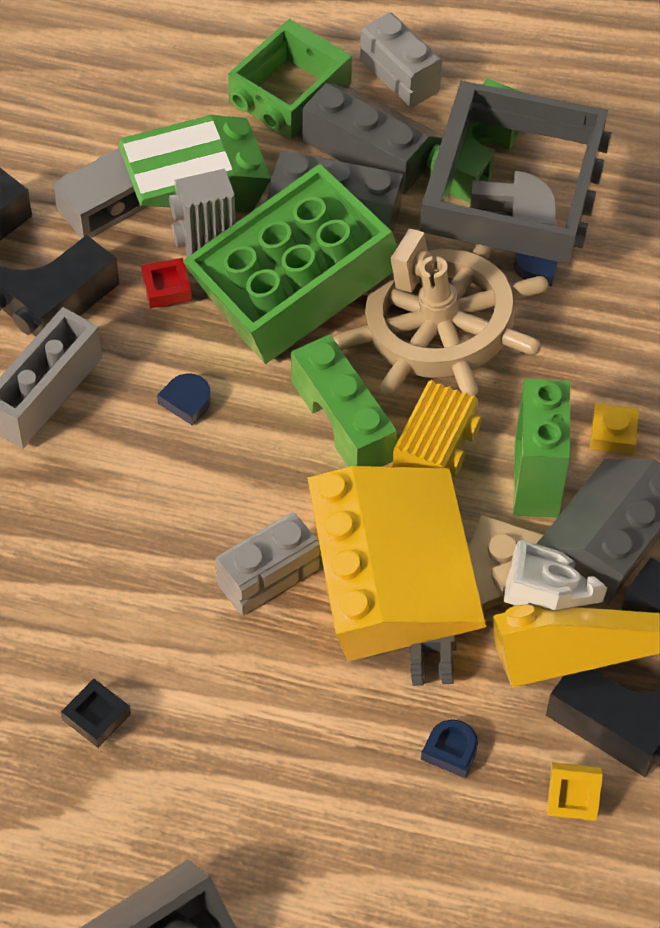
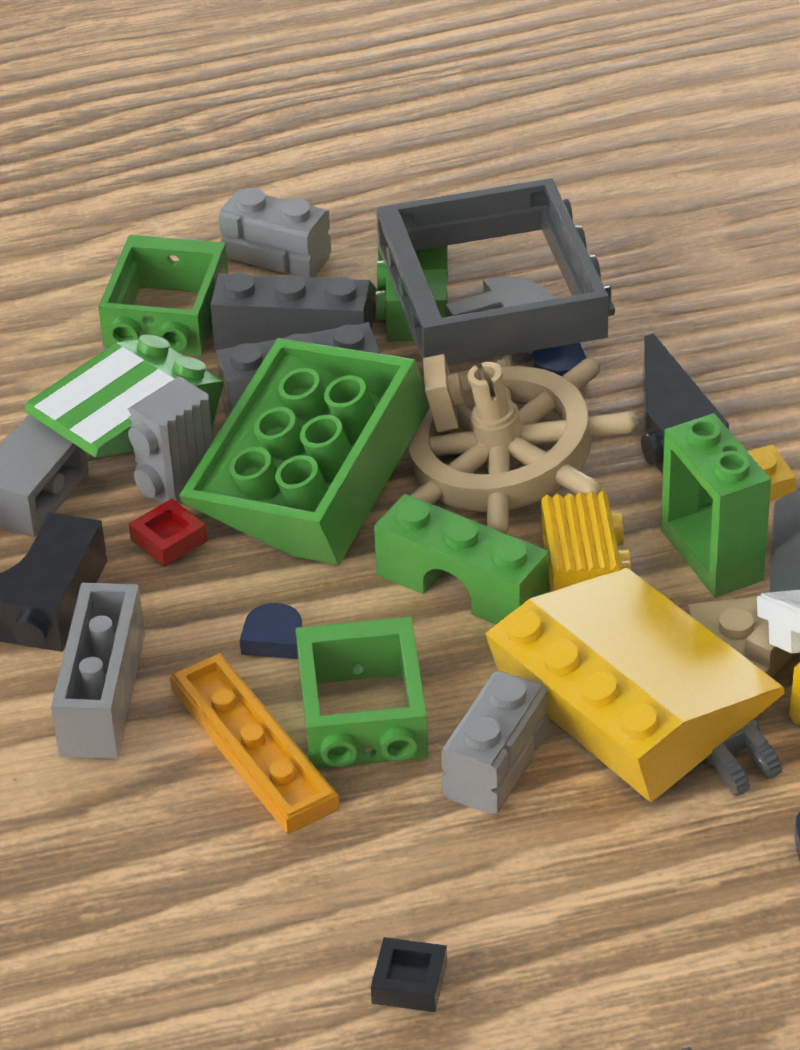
camera: 25 degrees left, 15 degrees down
(118, 480) = (254, 743): none -> light orange tile
(218, 441) = (357, 653): none -> bright green window
(581, 348) = (668, 399): none -> black slope

